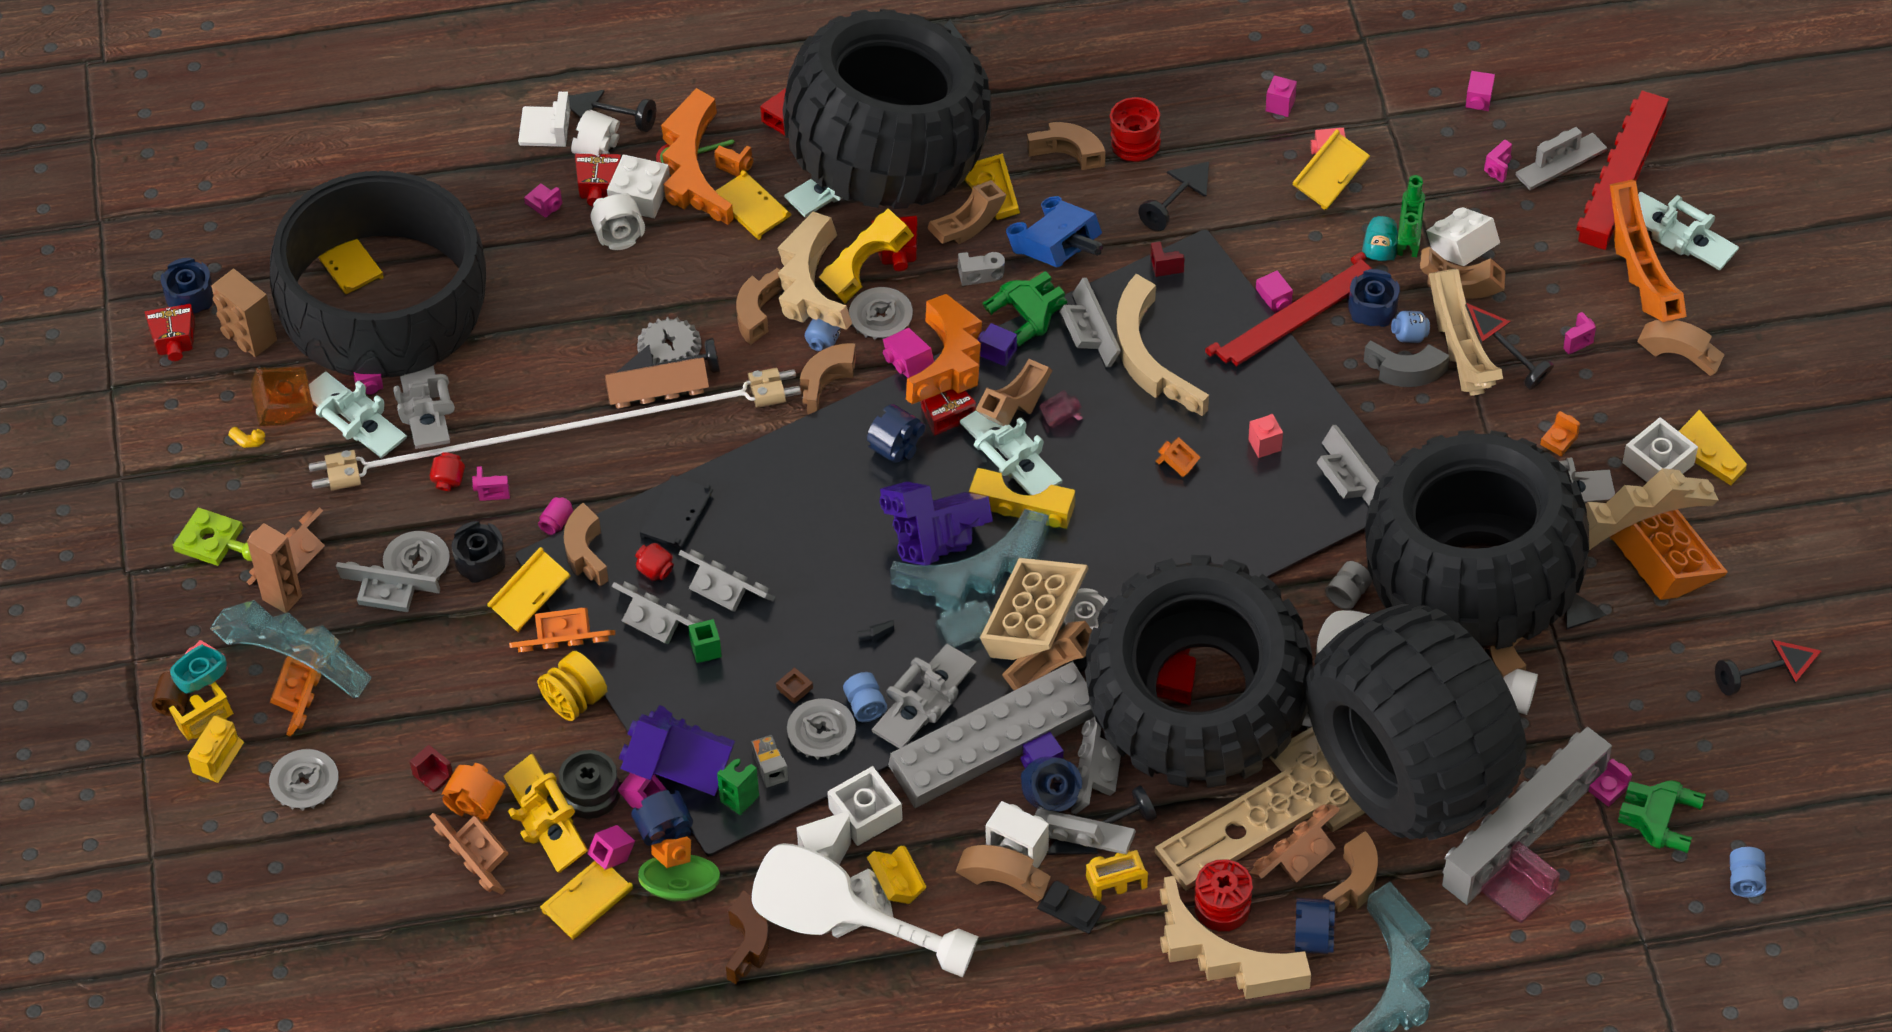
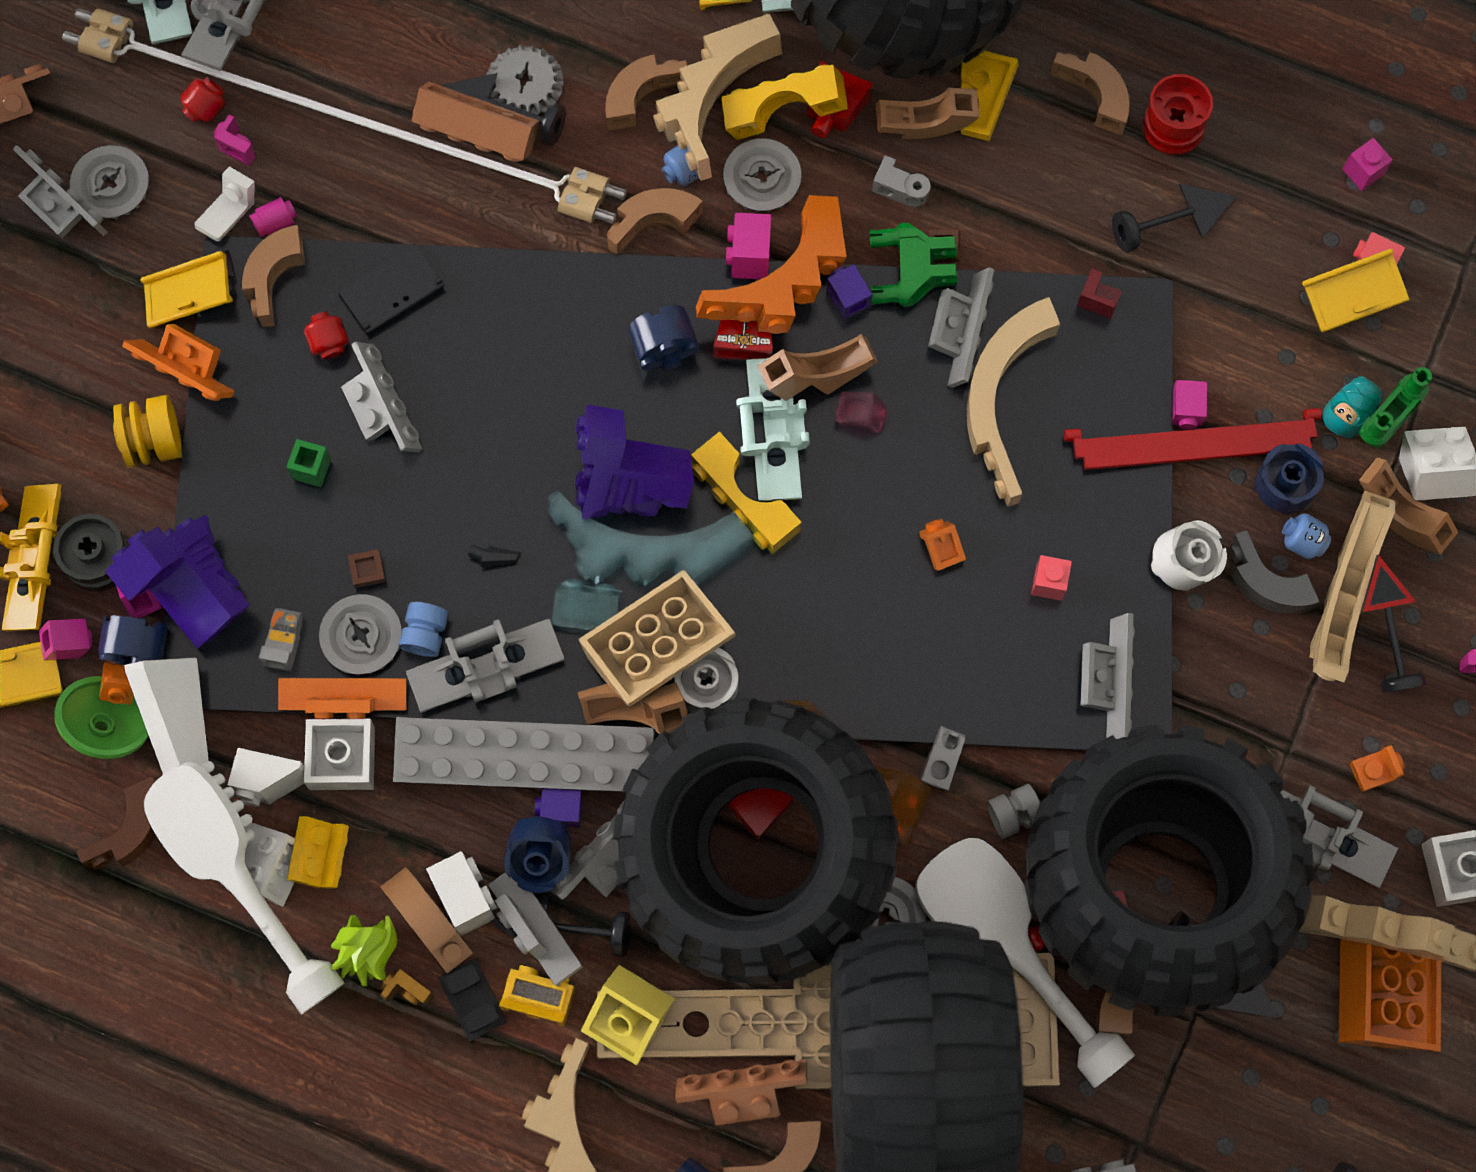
camera: 30 degrees right, 20 degrees up
(478, 551) = (167, 213): black brick -> none
(518, 521) = (229, 207): none -> white bracket
(650, 616) = (286, 398): light grey bracket -> none
(724, 838) = (171, 709): none -> white slope
(738, 789) = (225, 662): green hinge -> none
(837, 769) = (342, 695): none -> orange bracket
(976, 908) = (364, 949): none -> lime hair
(1023, 918) = (412, 990): none -> pearl gold bracket
(1058, 234) = (1003, 196): blue piece -> none
(1187, 842) = (627, 1014): none -> light yellow slope
(1223, 895) = (642, 1102): red wheel -> none
(1278, 572) = (943, 758): none -> light grey leg
(1344, 374) = (1189, 555): none -> white brick

